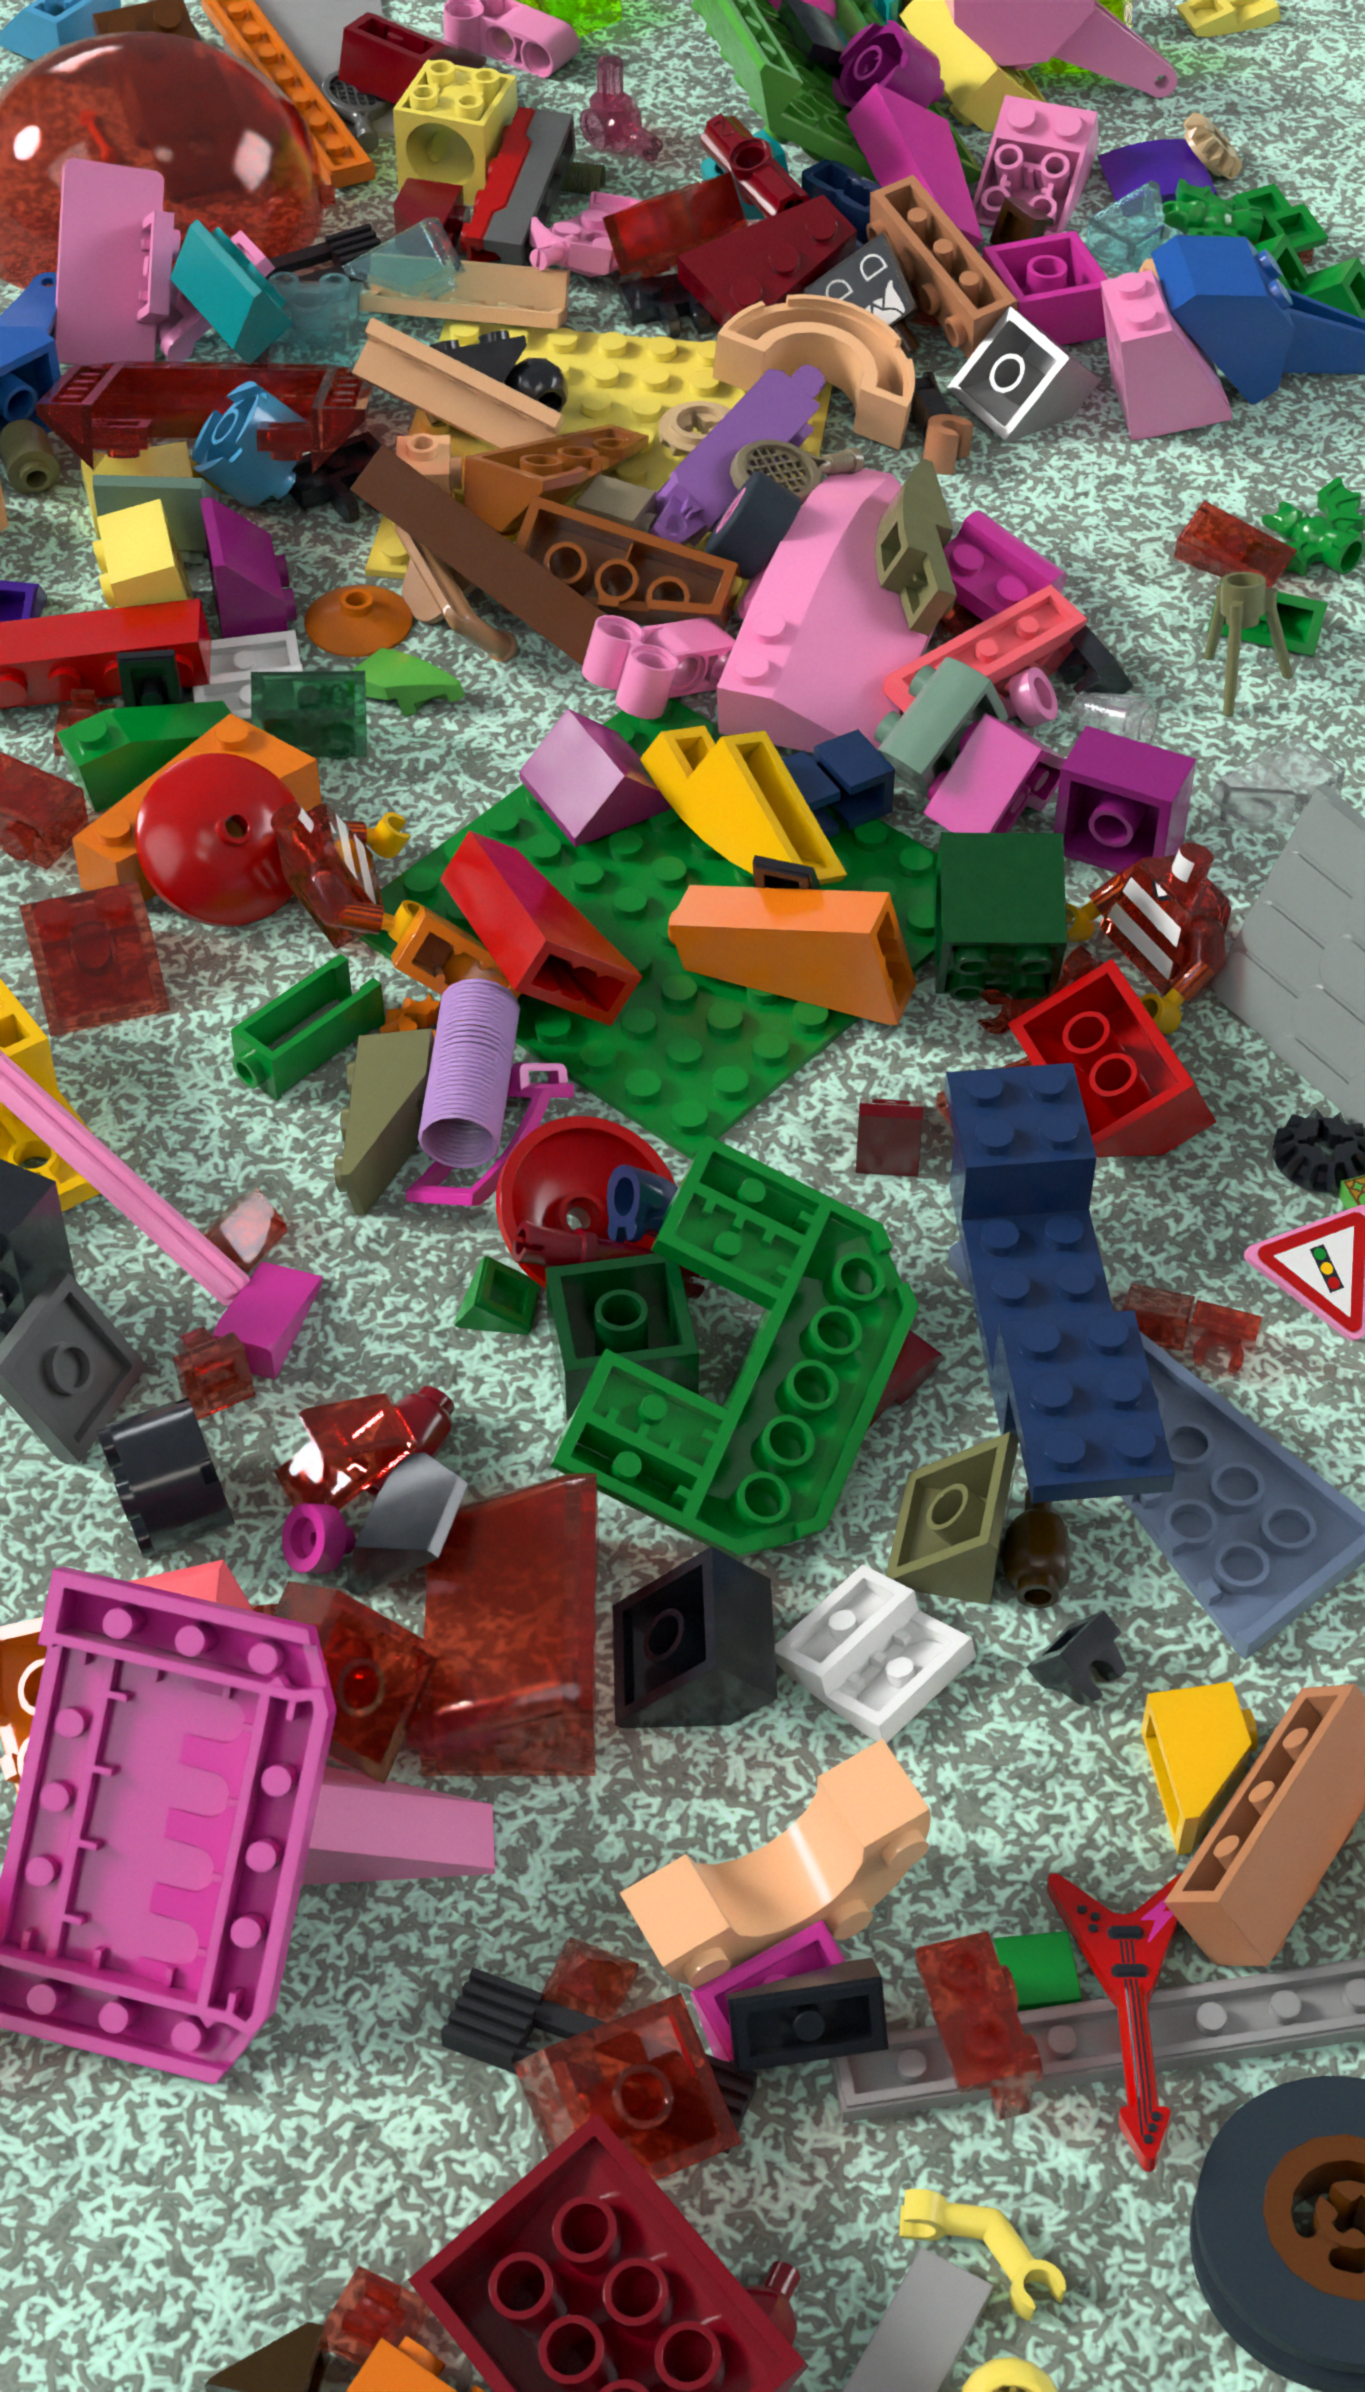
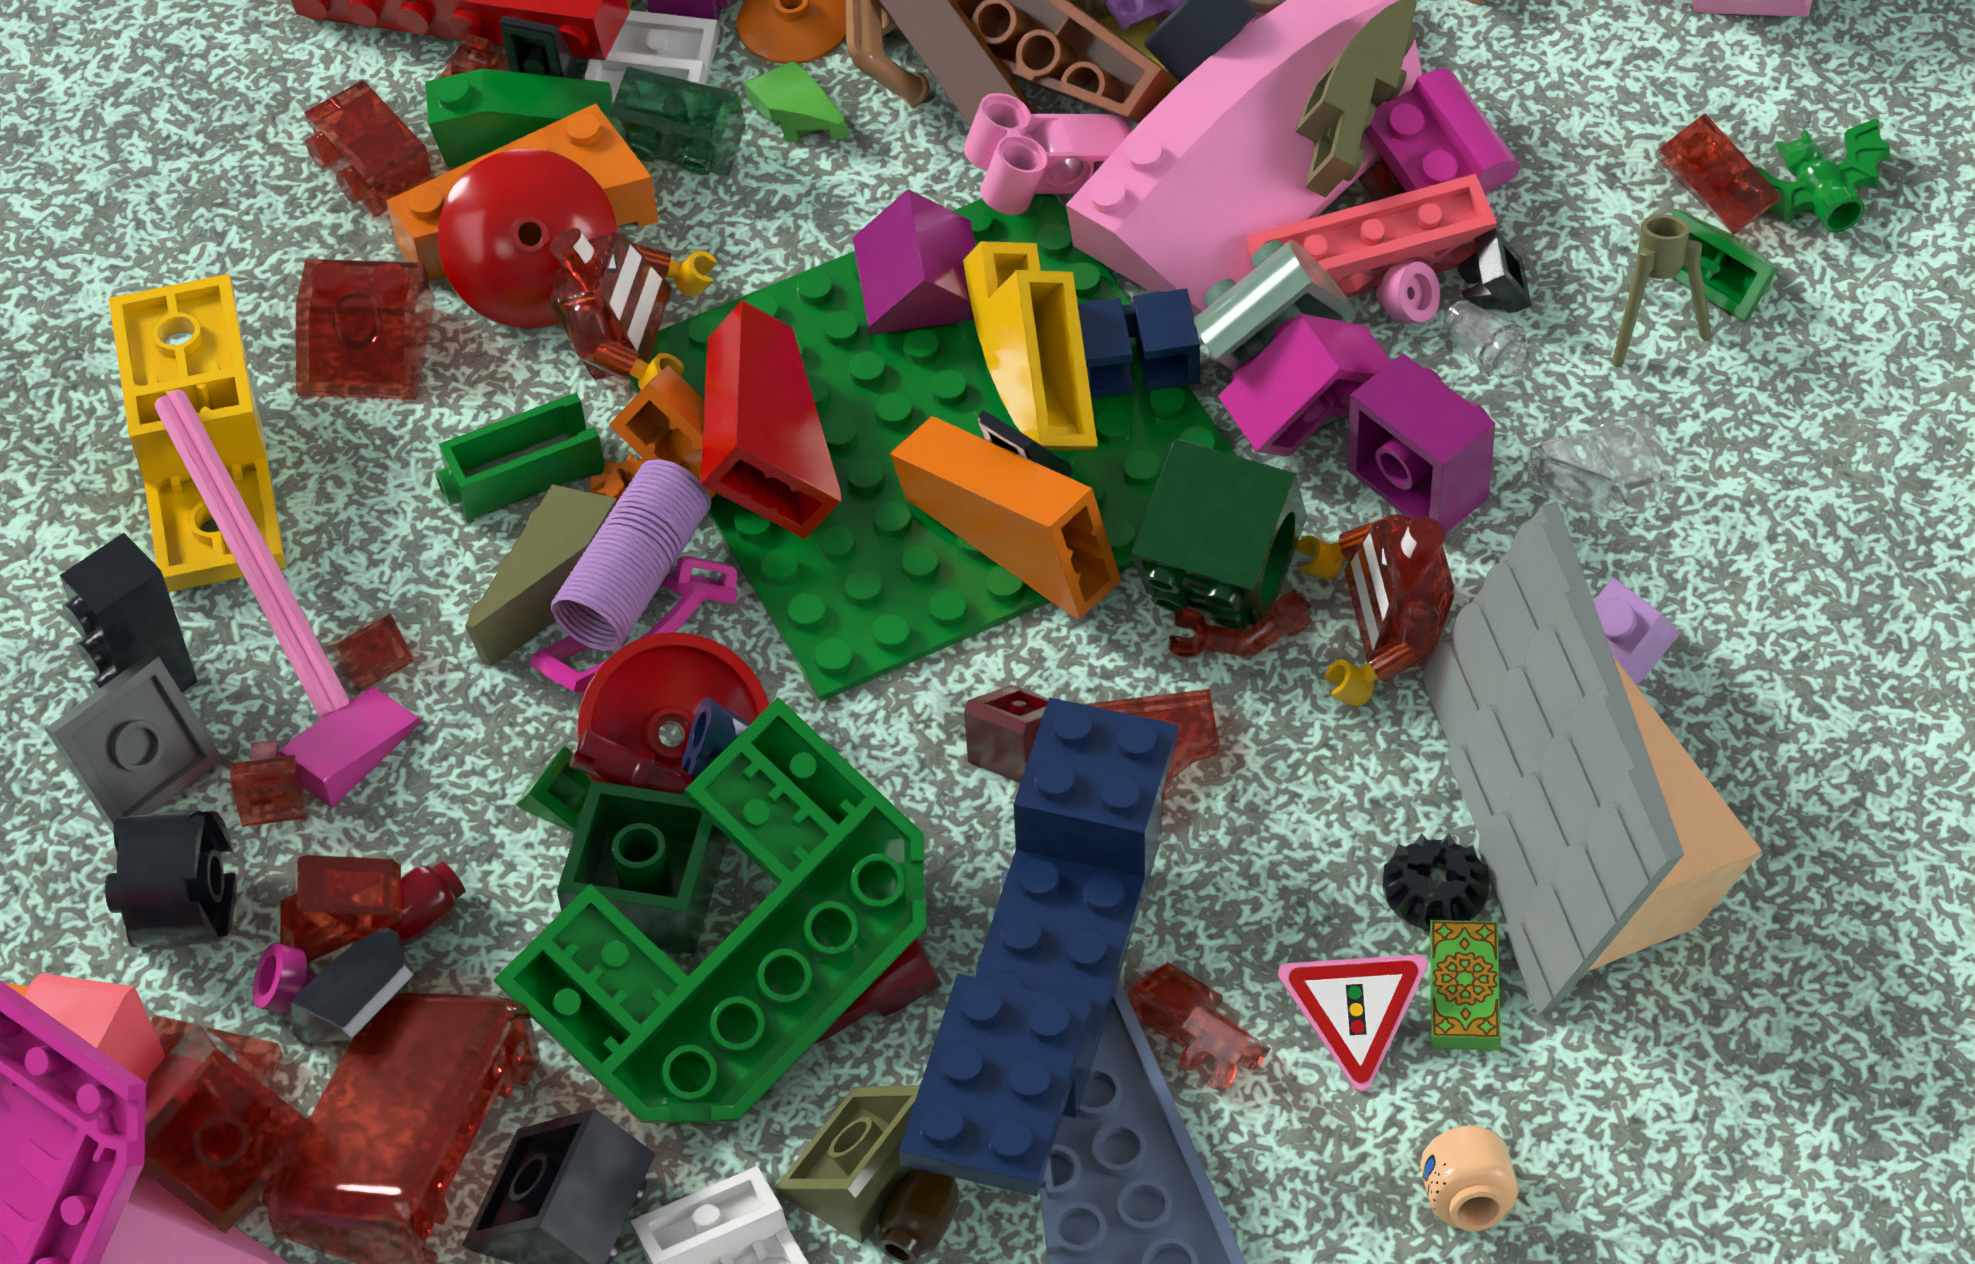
camera: 25 degrees right, 5 degrees up
(1126, 1071) = (1259, 731): red slope -> none

